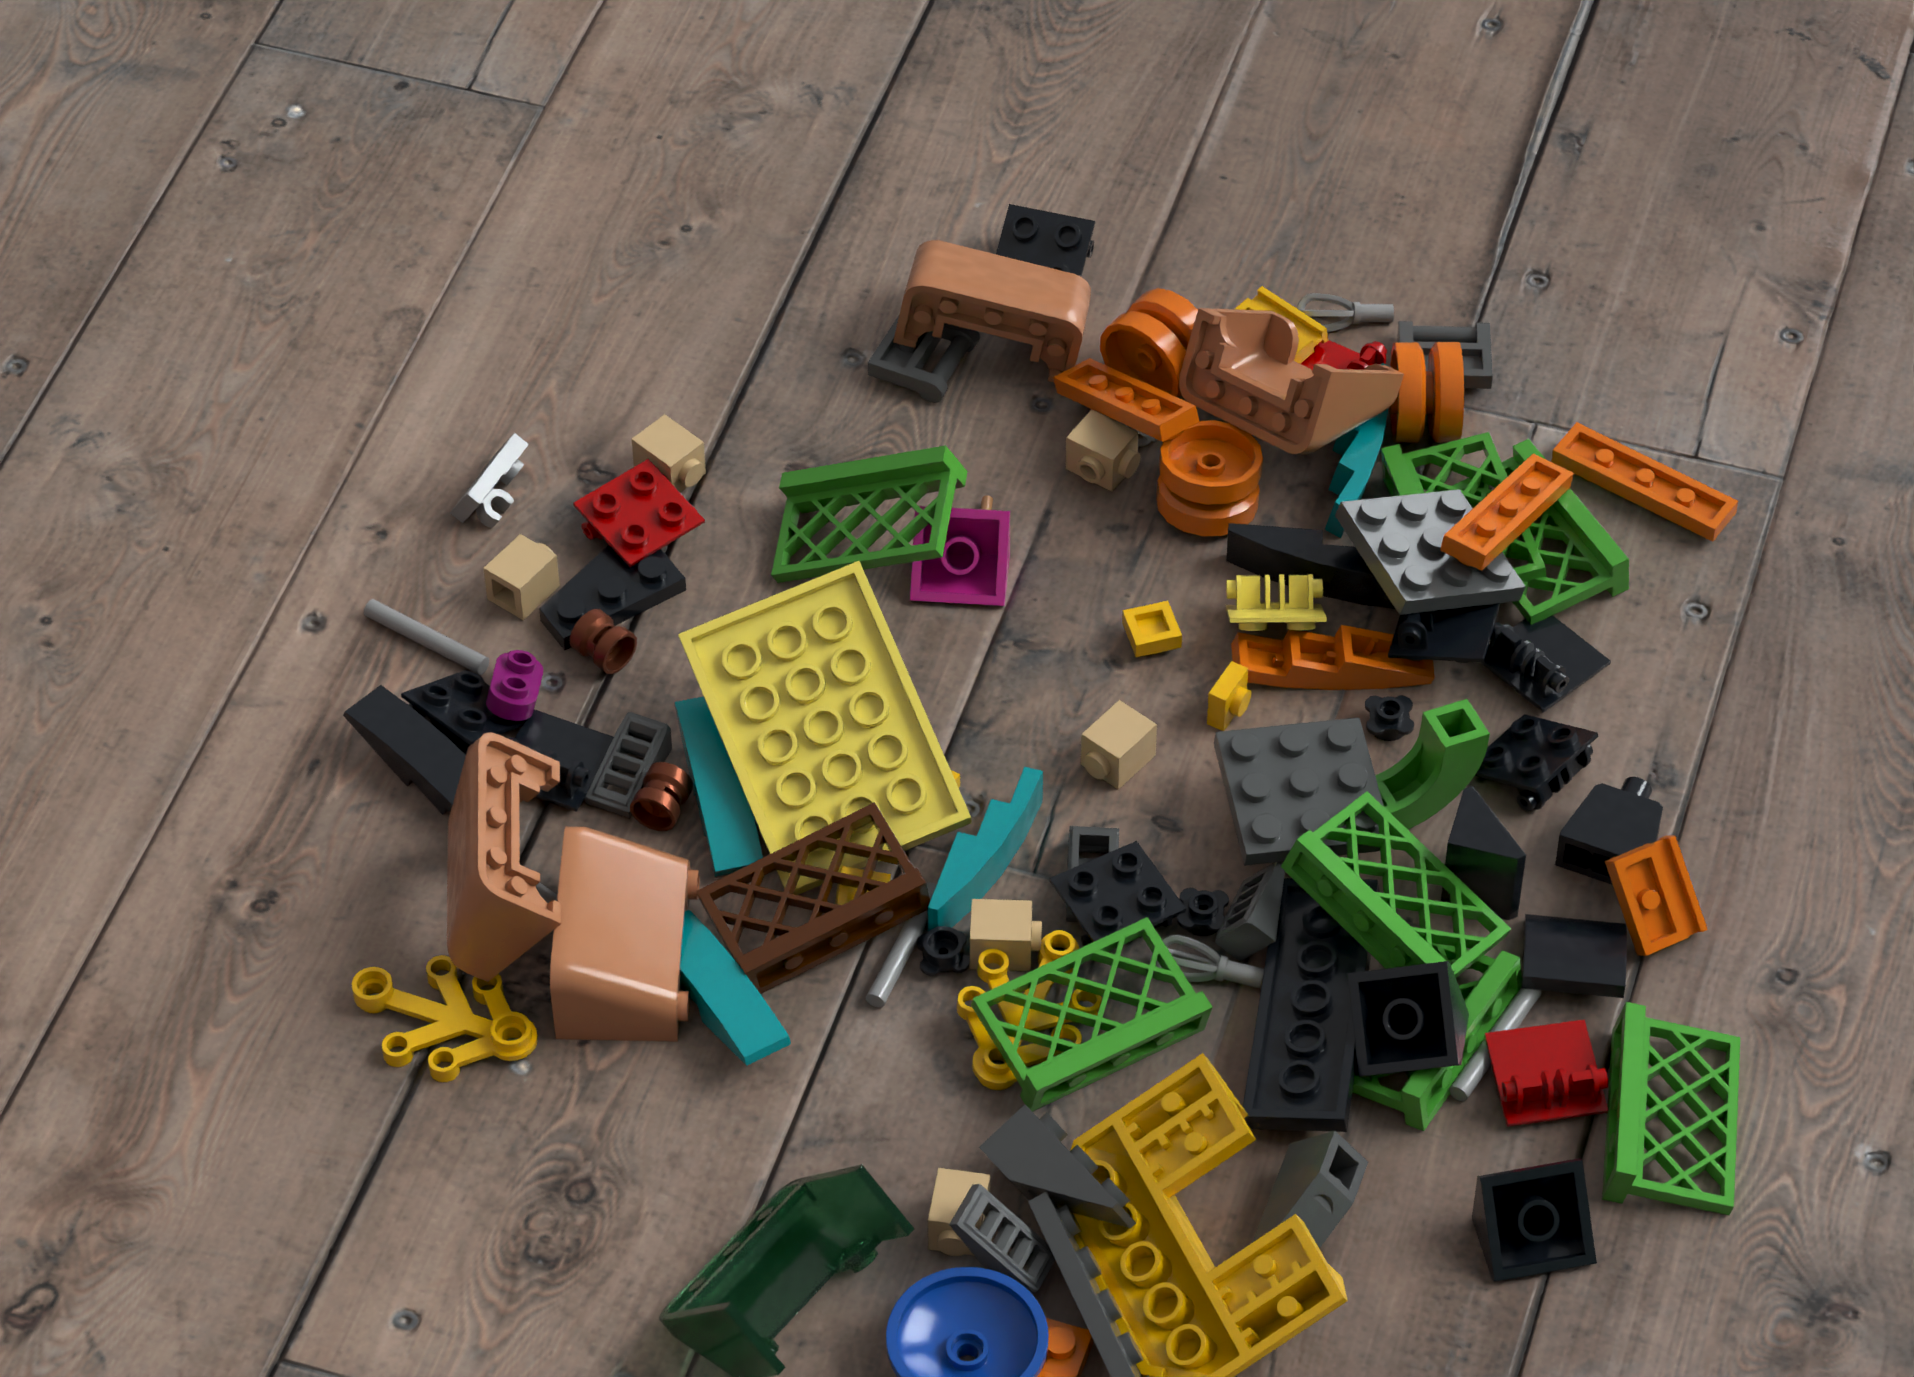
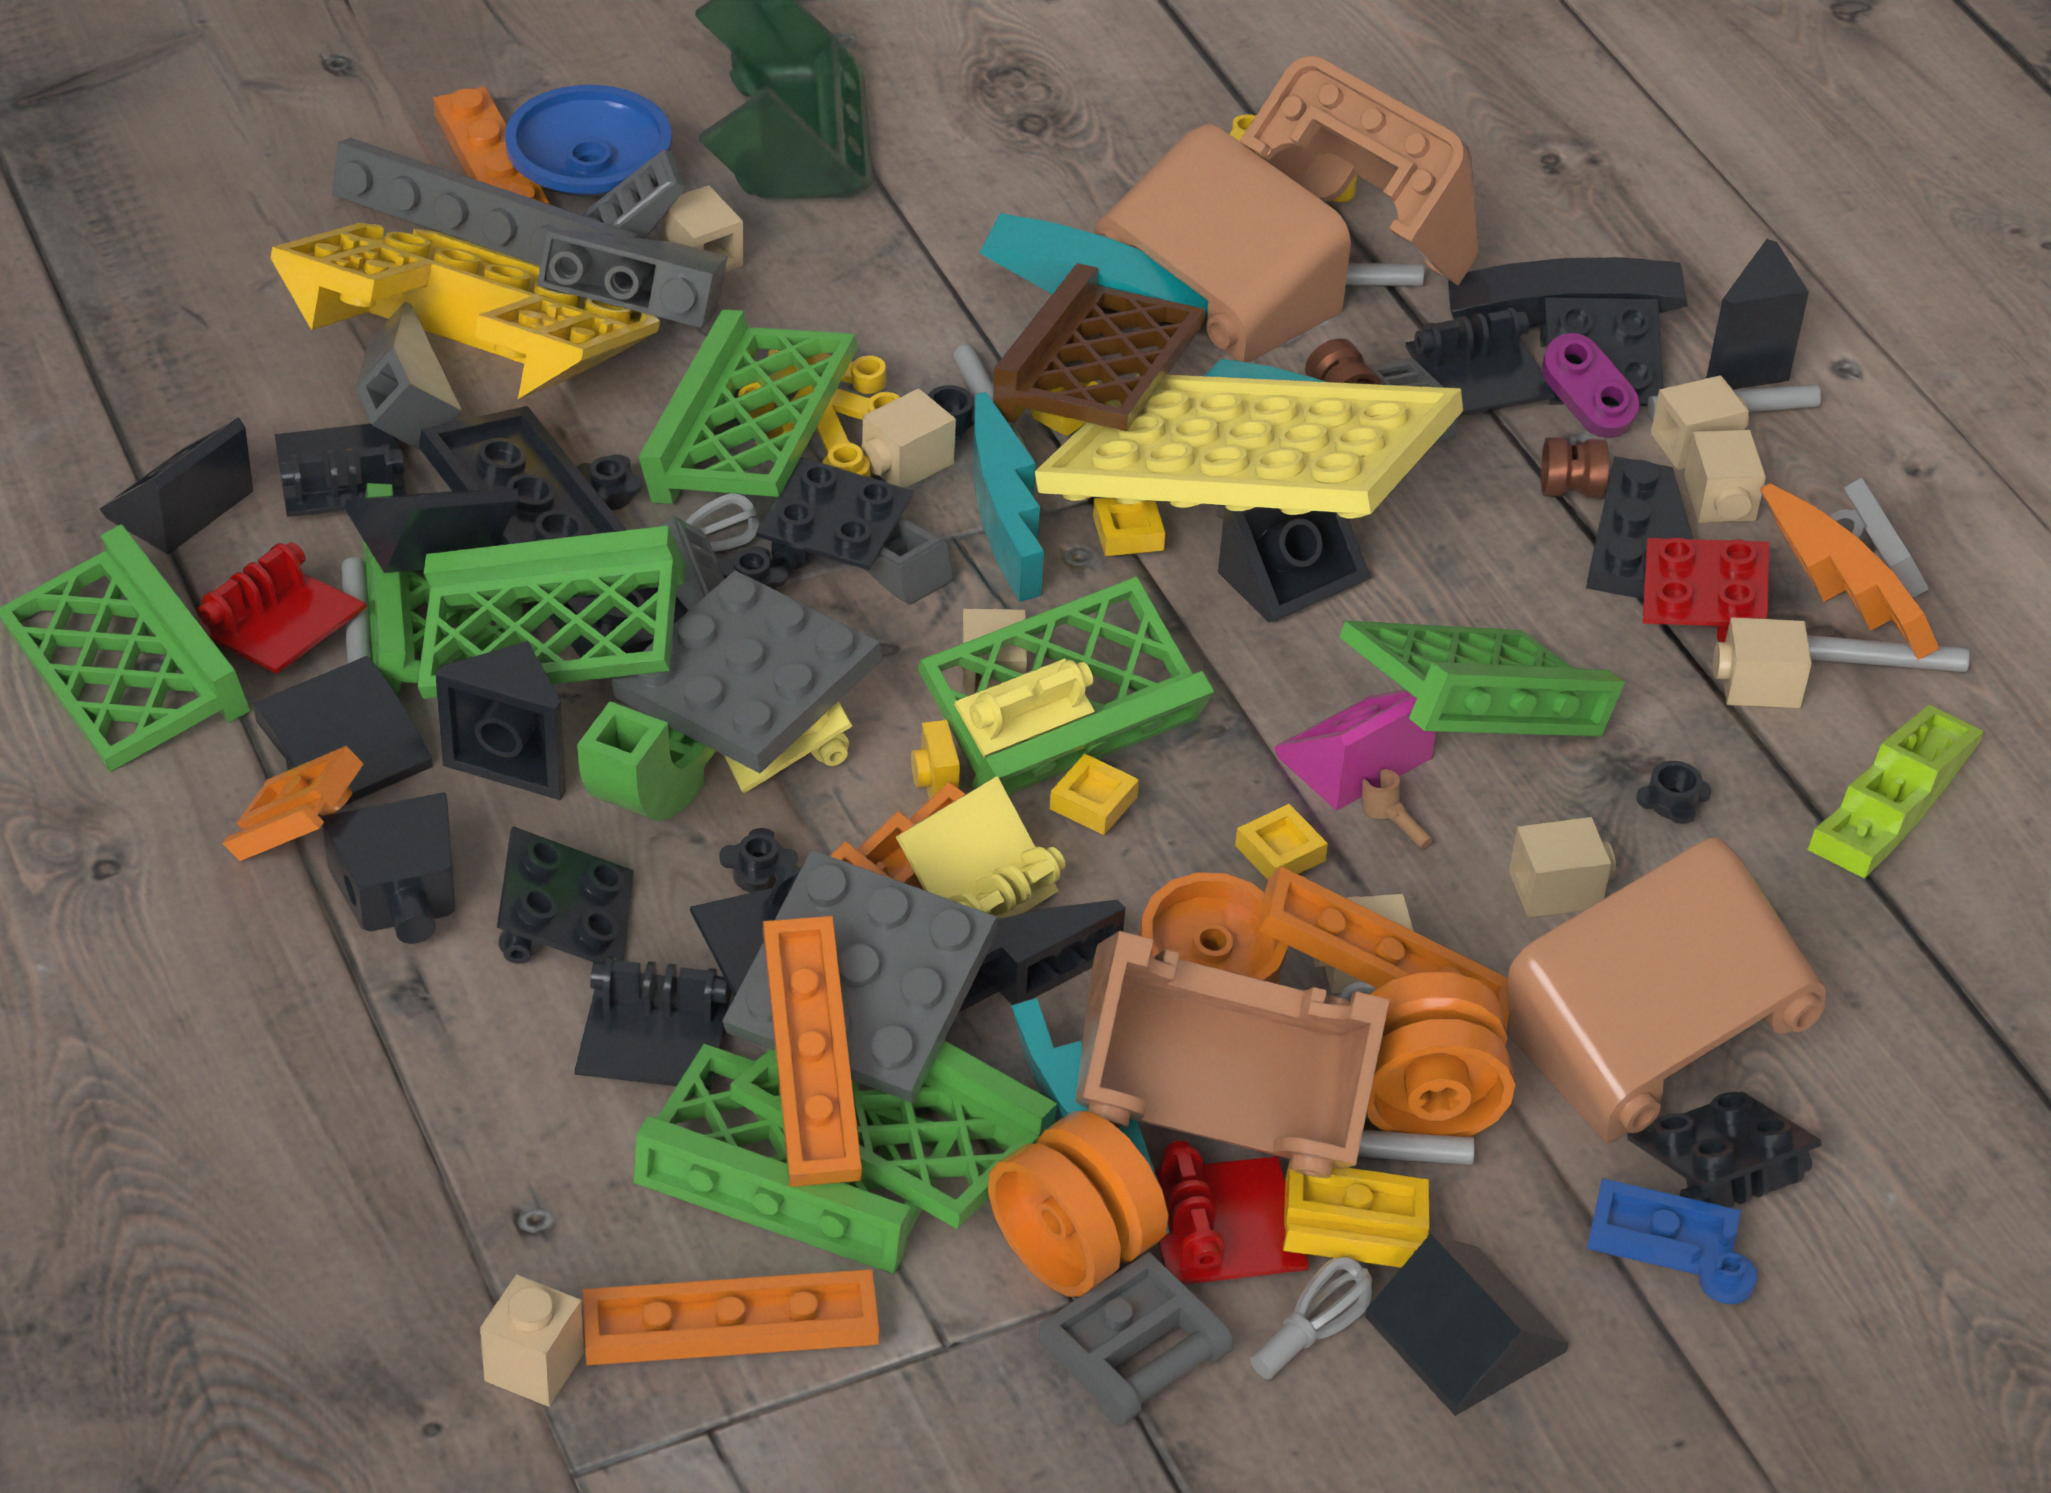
camera: 135 degrees right, 5 degrees down
(367, 635) = (1759, 322): none -> black slope
(483, 618) = (1694, 408): none -> tan brick
(544, 473) = (1842, 562): none -> orange slope
(582, 435) = (1885, 654): none -> light grey bar
(682, 359) = (1896, 790): none -> lime slope
(817, 432) = (1674, 791): none -> black plate
(943, 420) = (1561, 866): none -> tan brick
(1079, 535) = (1281, 840): none -> yellow plate
(1104, 653) = (1113, 726): none -> bright green fence
(1124, 239) = (1674, 1235): none -> blue hinge
(1182, 658) = (1027, 706): none -> light yellow hinge
(1223, 1056) = (612, 479): none -> black plate
(1269, 255) = (1462, 1323): none -> black slope
(1406, 1179) = (335, 465): none -> black hinge
(1763, 519) = (532, 1340): none -> tan brick

